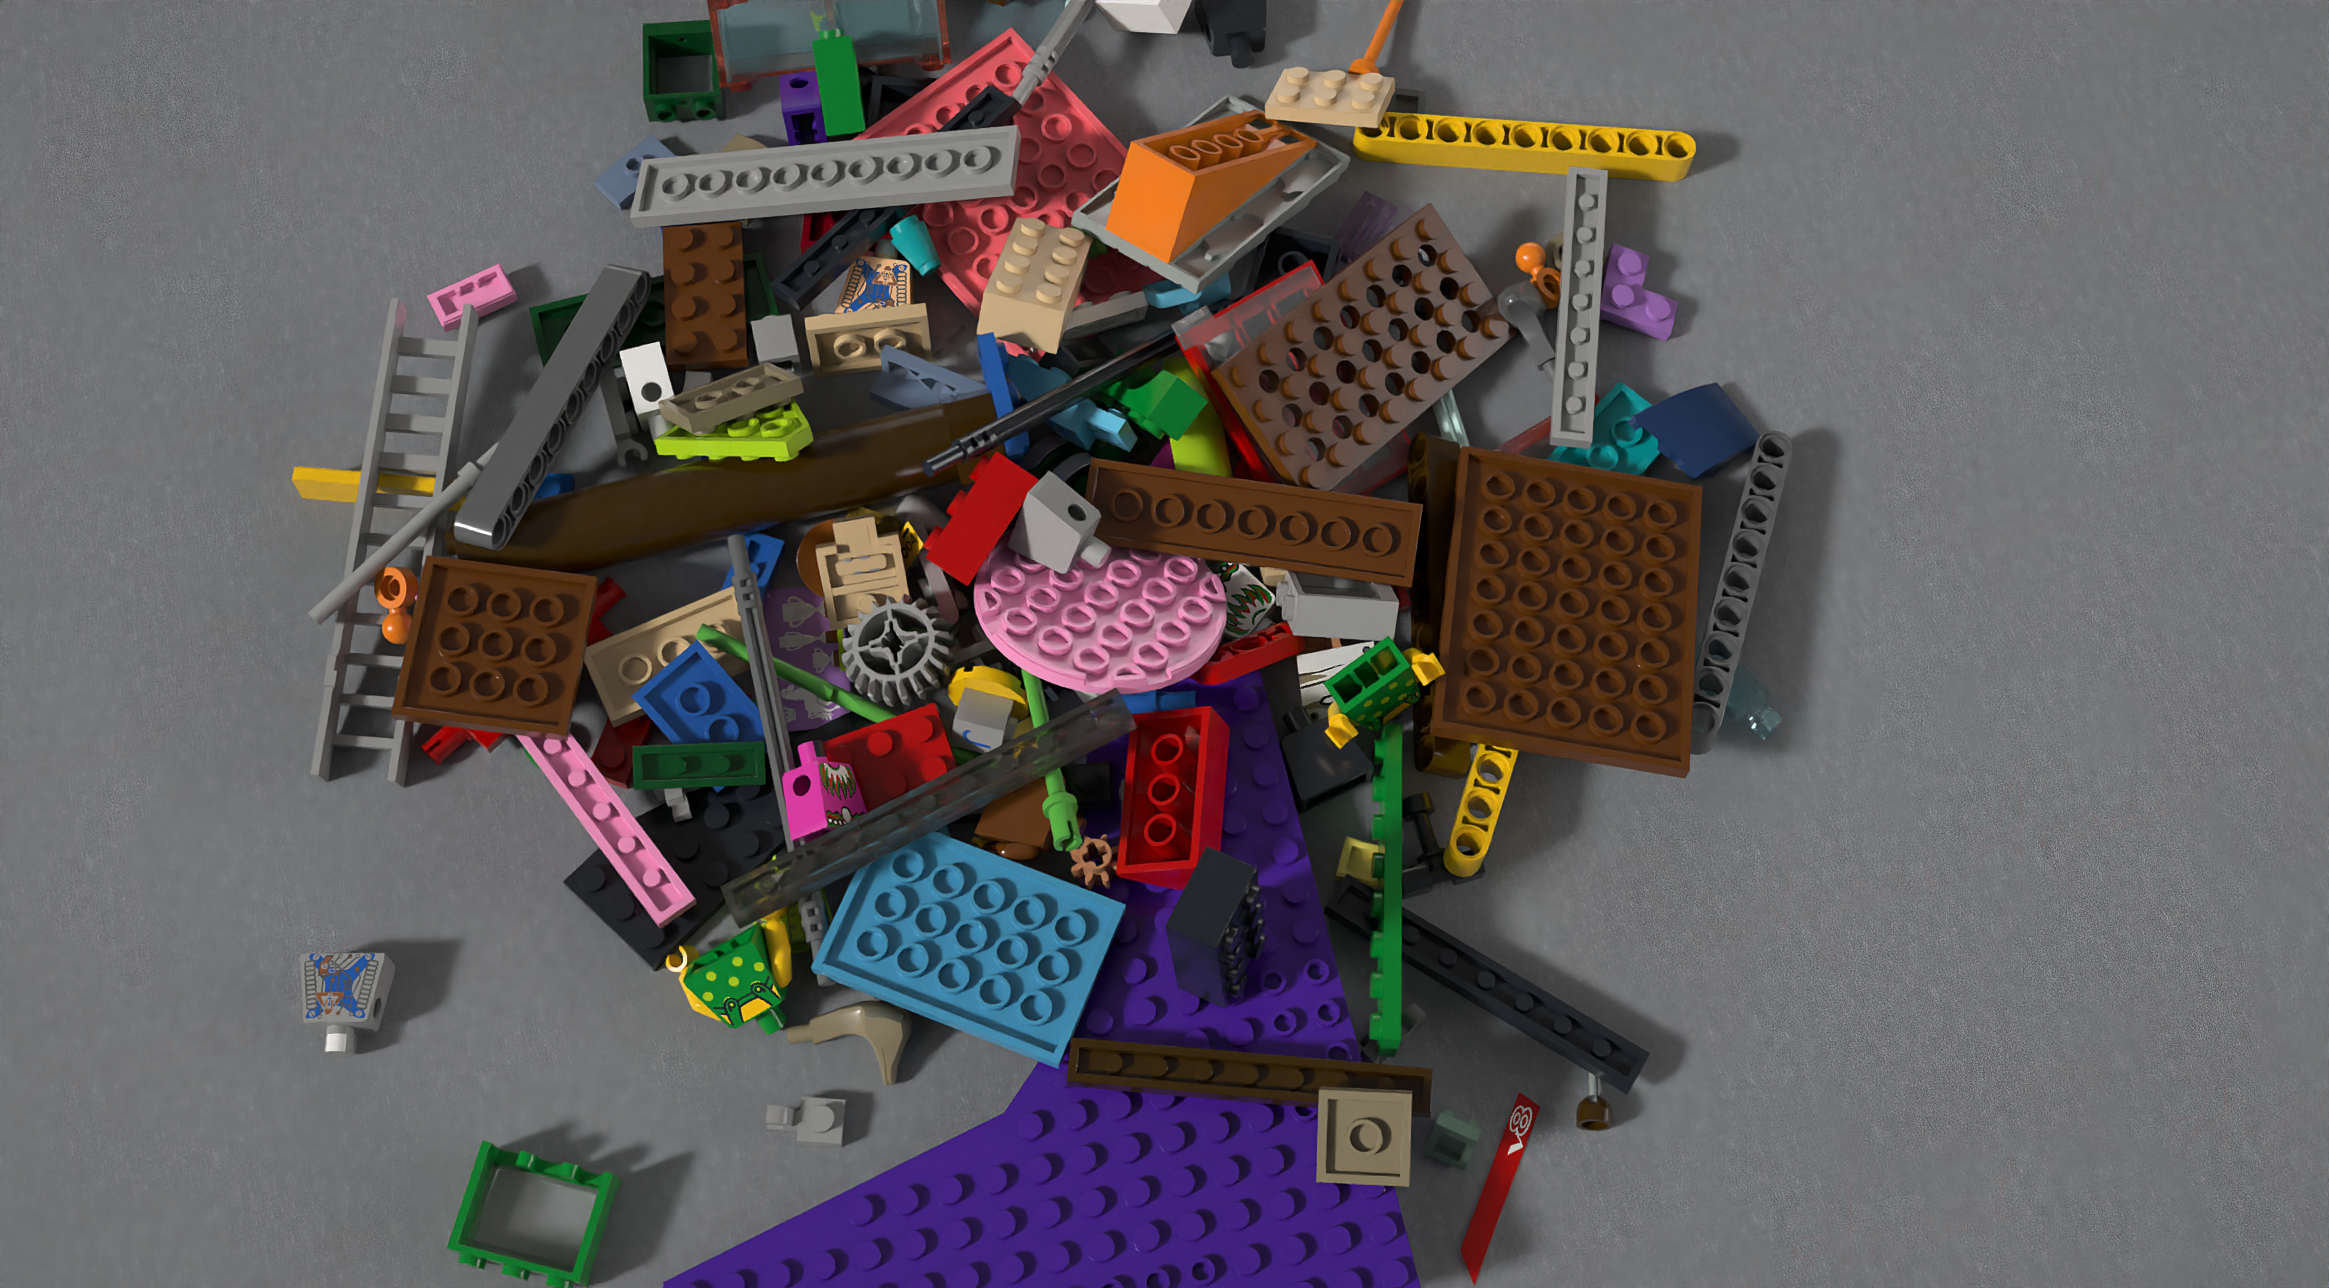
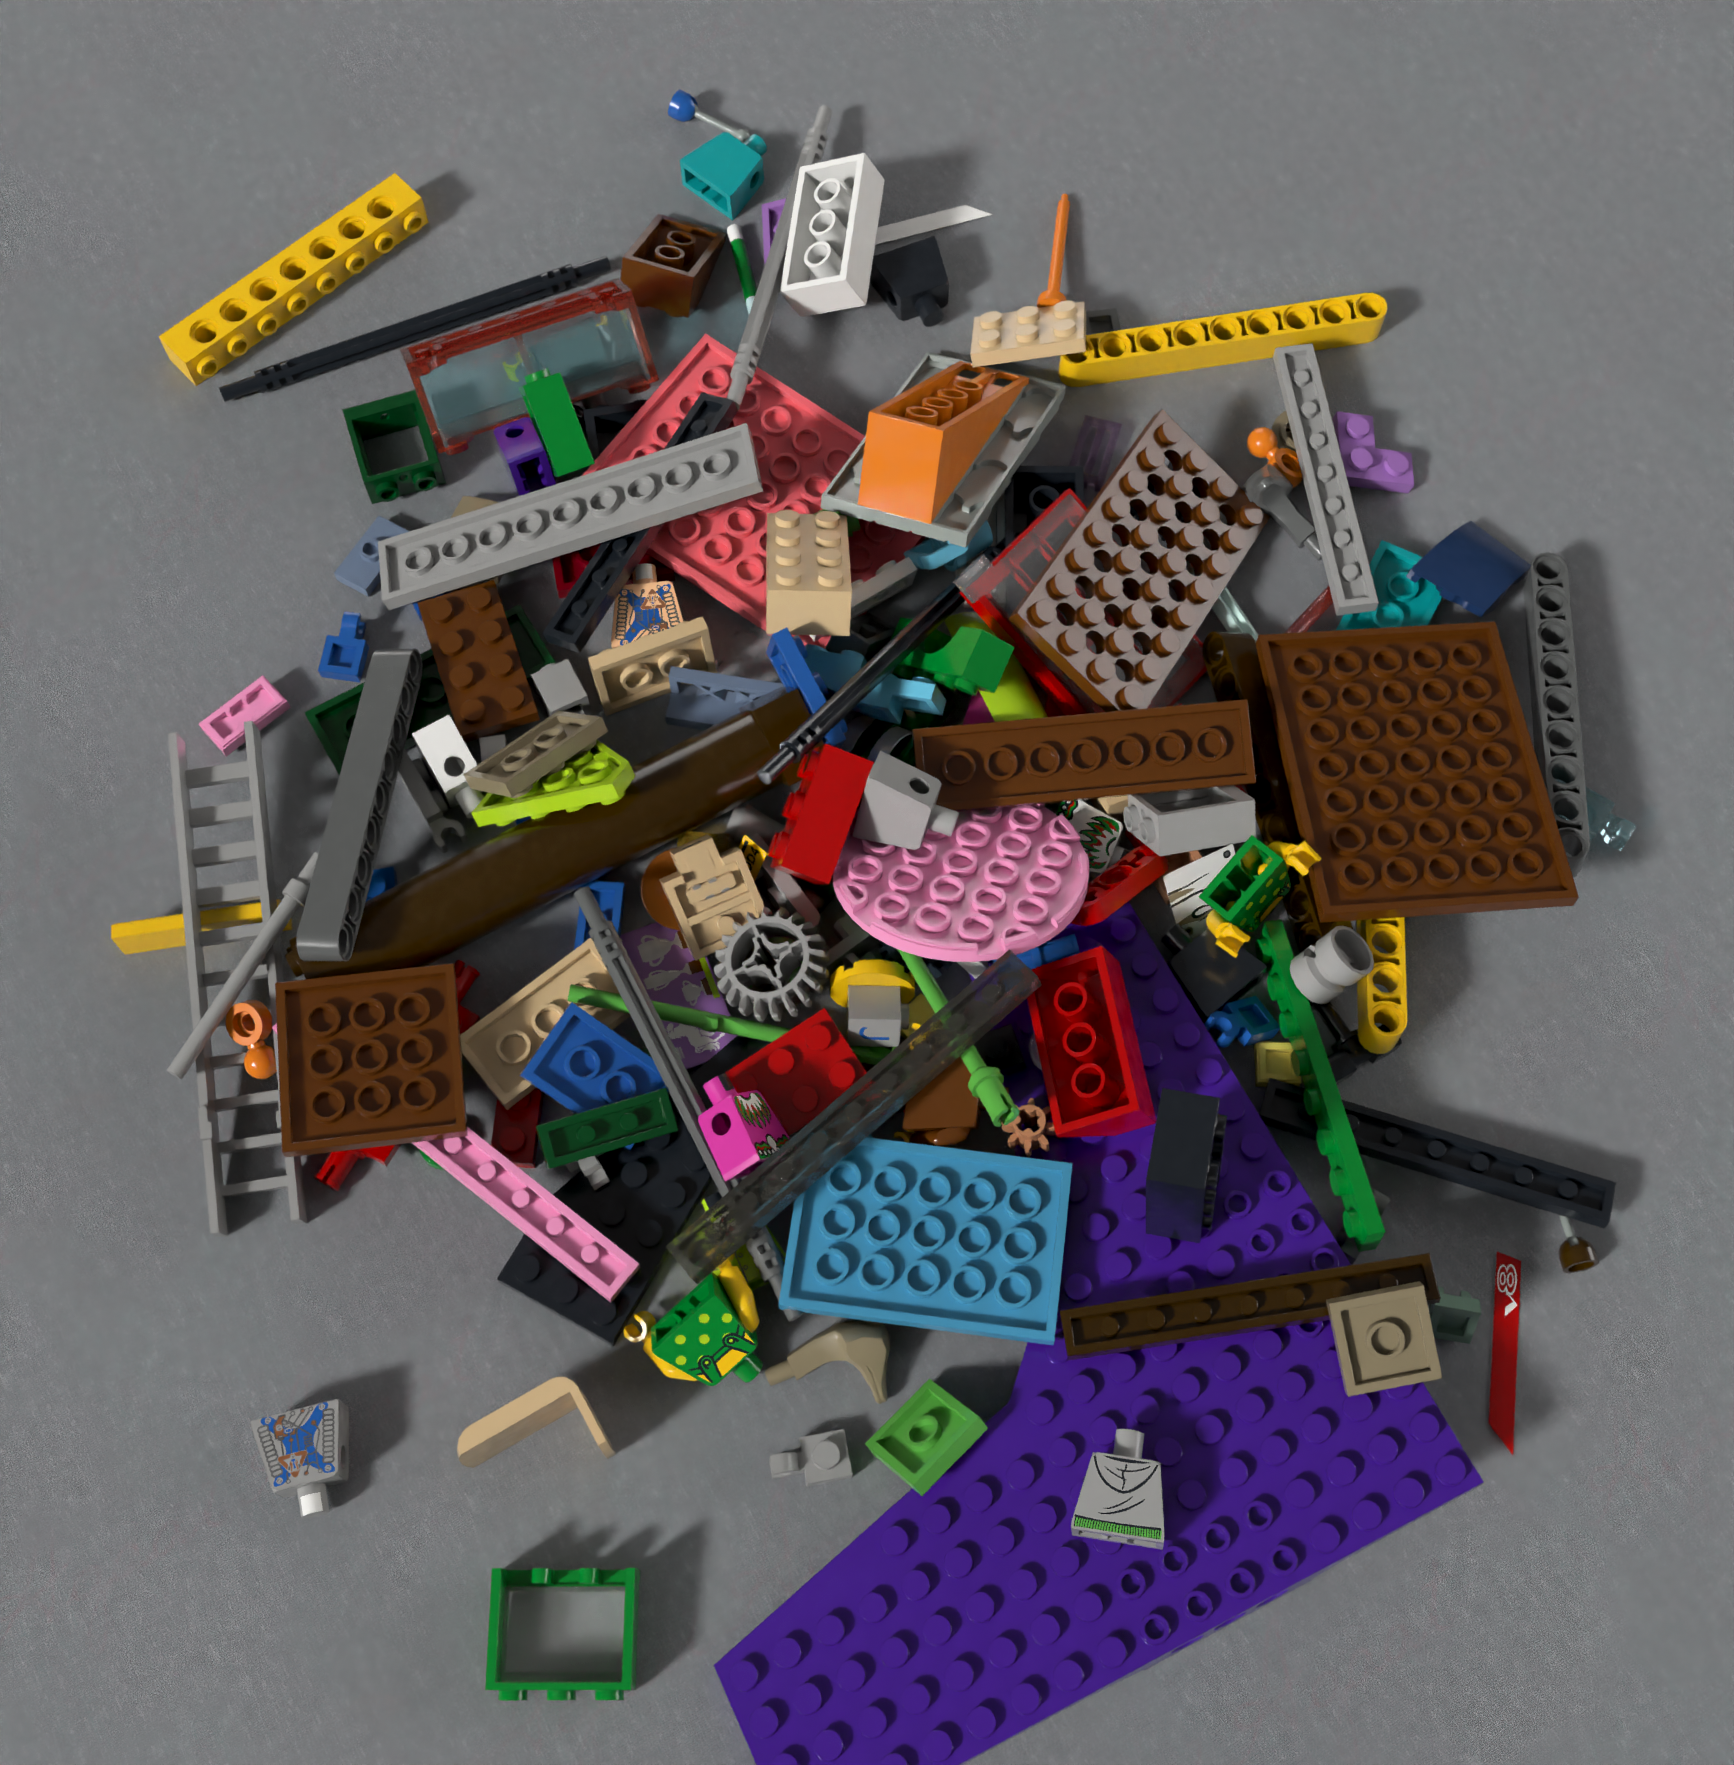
camera: 10 degrees left, 0 degrees up
(554, 1013) = (526, 1416): none -> tan piece
(584, 261) = (345, 654): none -> blue plate
(915, 244) = (674, 563): teal cone -> none
(917, 1124) = (926, 1436): none -> bright green plate
(1077, 1220) = (1122, 1496): none -> light grey torso
(1339, 813) = (1243, 1020): none -> blue plate
(1432, 778) = (1331, 964): none -> light grey wheel

